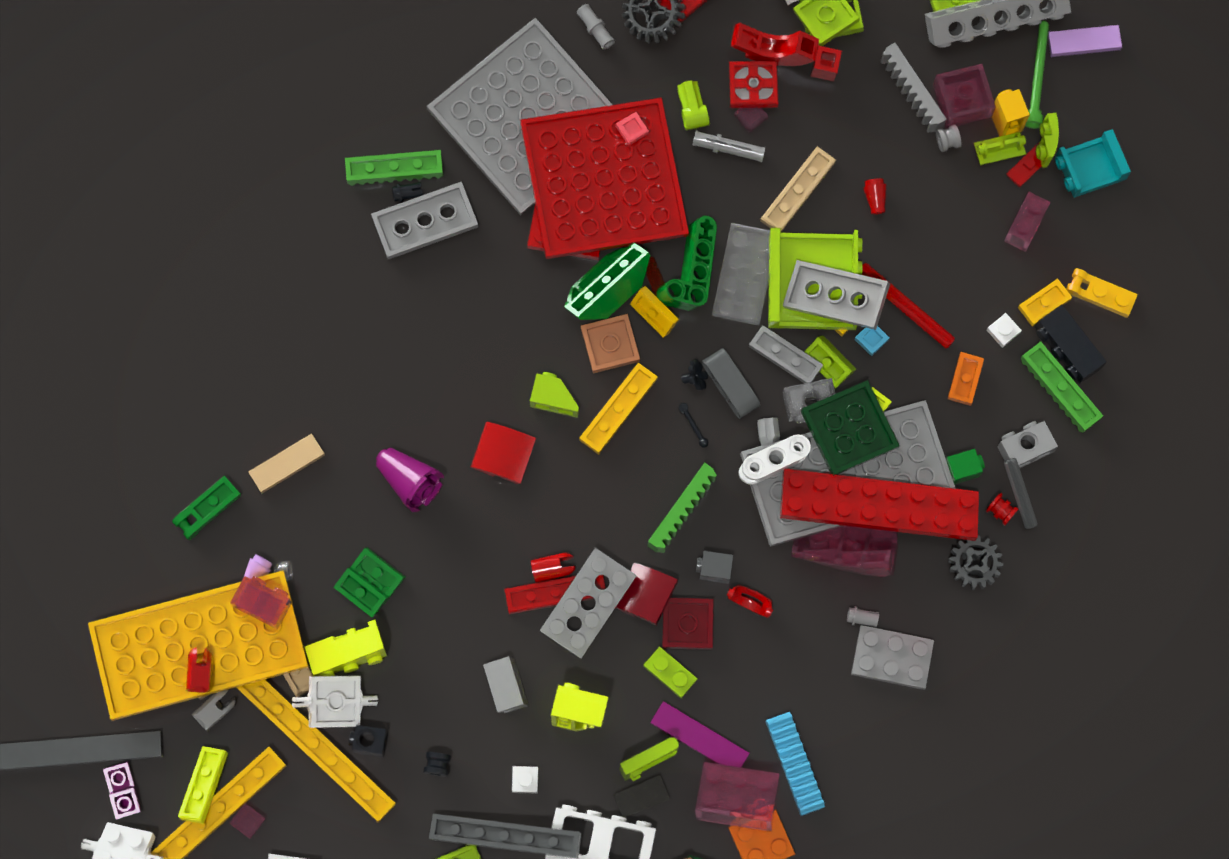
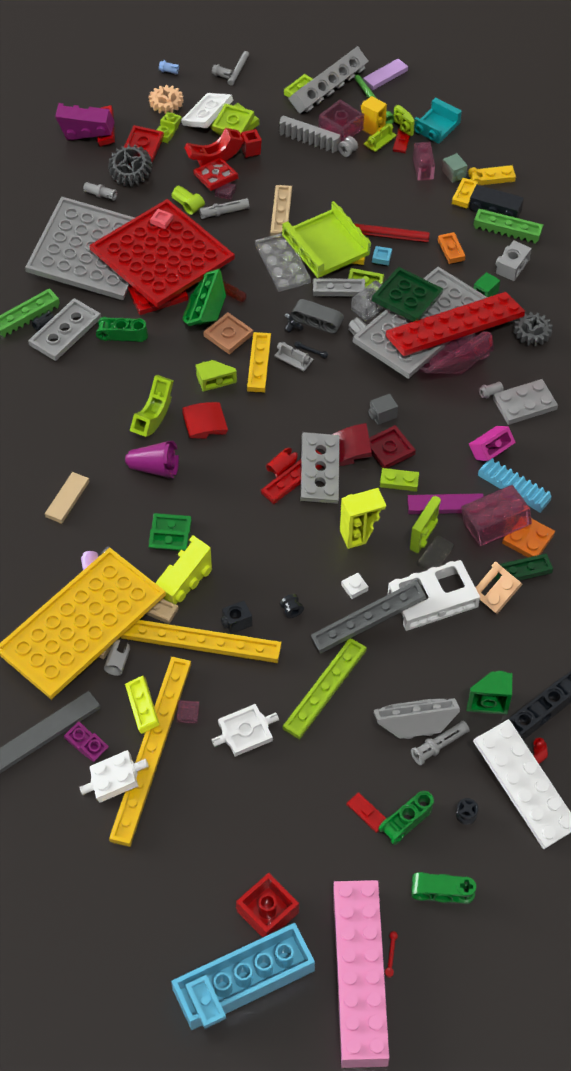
camera: 30 degrees left, 20 degrees down
(199, 673) = (94, 630): red piece -> none
(206, 507) = (30, 547): green plate -> none
(261, 602) = (108, 568): clear pink brick -> none
(334, 701) = (197, 605): white plate -> none
(450, 407) = (154, 411): none -> lime arch
(475, 252) = (122, 329): none -> green piece
(505, 685) = (303, 537): light grey hinge -> none
(654, 311) = (243, 304): yellow plate -> none
(664, 425) = (293, 357): none -> light grey hinge
(681, 508) = (339, 391): bright green gear -> none
(702, 236) = (254, 278): green beam -> none
(736, 596) = (431, 413): red helmet -> none
(786, 453) = (376, 327): white piece -> none
(805, 696) = (492, 443): none -> dark pink brick
(841, 310) = (339, 228): light grey plate -> none
(876, 195) = (327, 189): red cone -> none
(1002, 509) = (525, 296): red bush -> none
(1004, 330) = (453, 217): white plate -> none
(1020, 493) = (530, 281): dark grey axle -> none
(1059, 256) = (454, 168): none -> sand green brick

